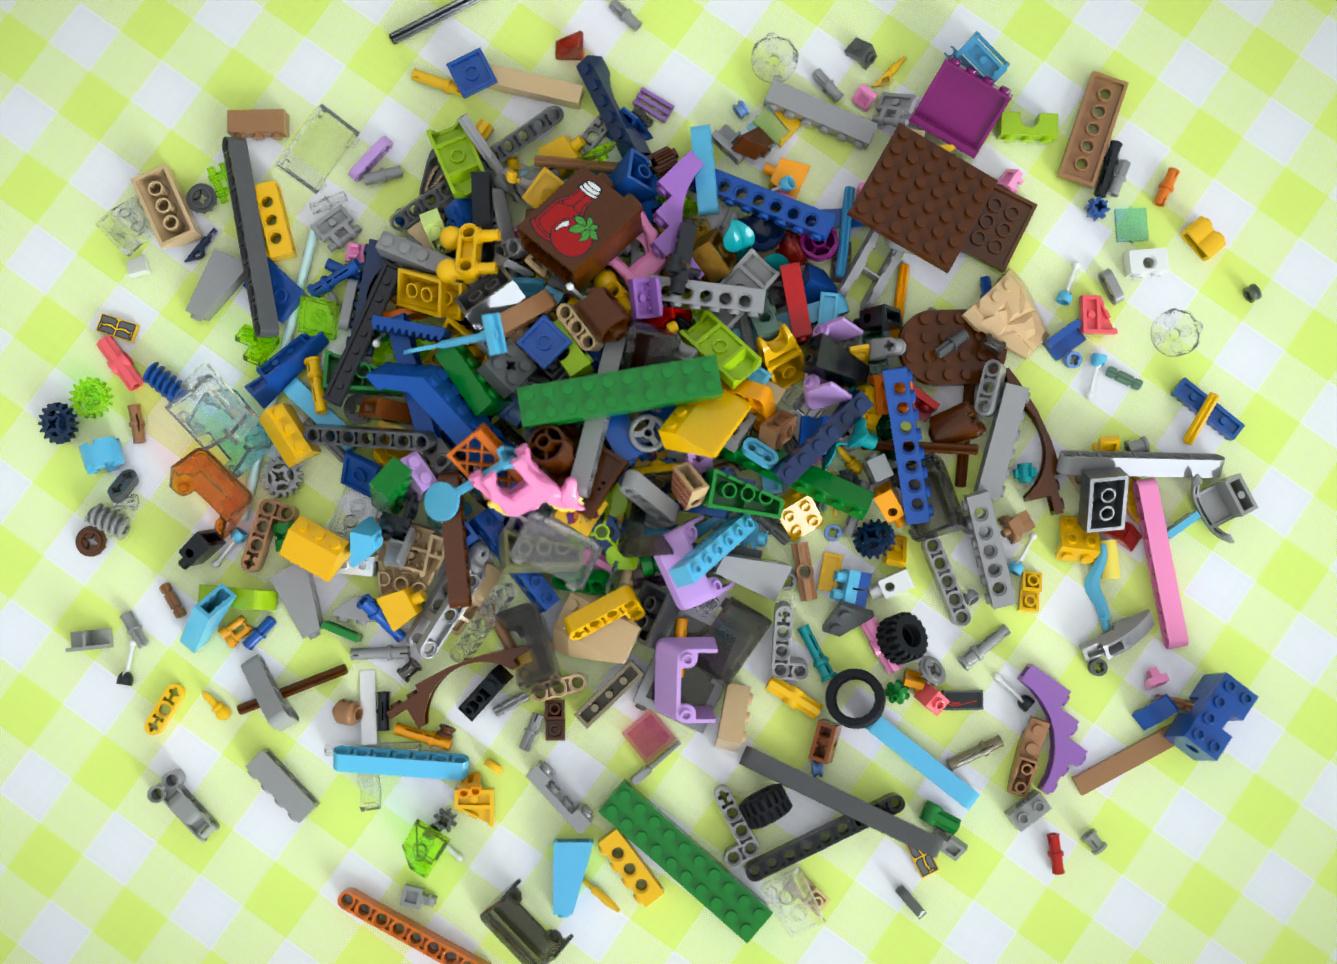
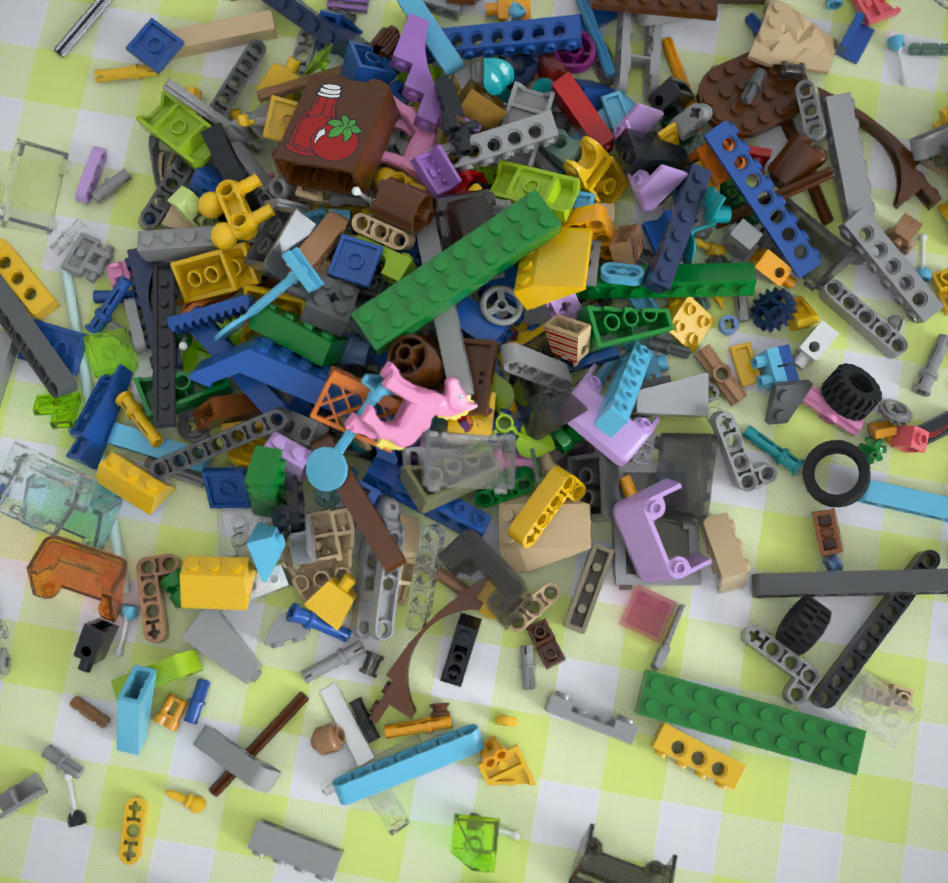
camera: 25 degrees left, 5 degrees down
(277, 483) = (146, 538): light grey gear -> none
(341, 631) = (282, 657): green tile -> none
(446, 814) = (483, 808): dark grey gear -> none
(510, 703) = (492, 648): light grey axle -> none
(569, 867) = (636, 789): medium azure slope -> none
(606, 900) = (686, 803): yellow hand -> none
(794, 697) = (773, 503): yellow piece -> none
(795, 399) = (628, 211): clear slope -> none
(1025, 472) = (884, 179): teal gear -> none
(1067, 357) = (877, 55): medium blue bush -> none

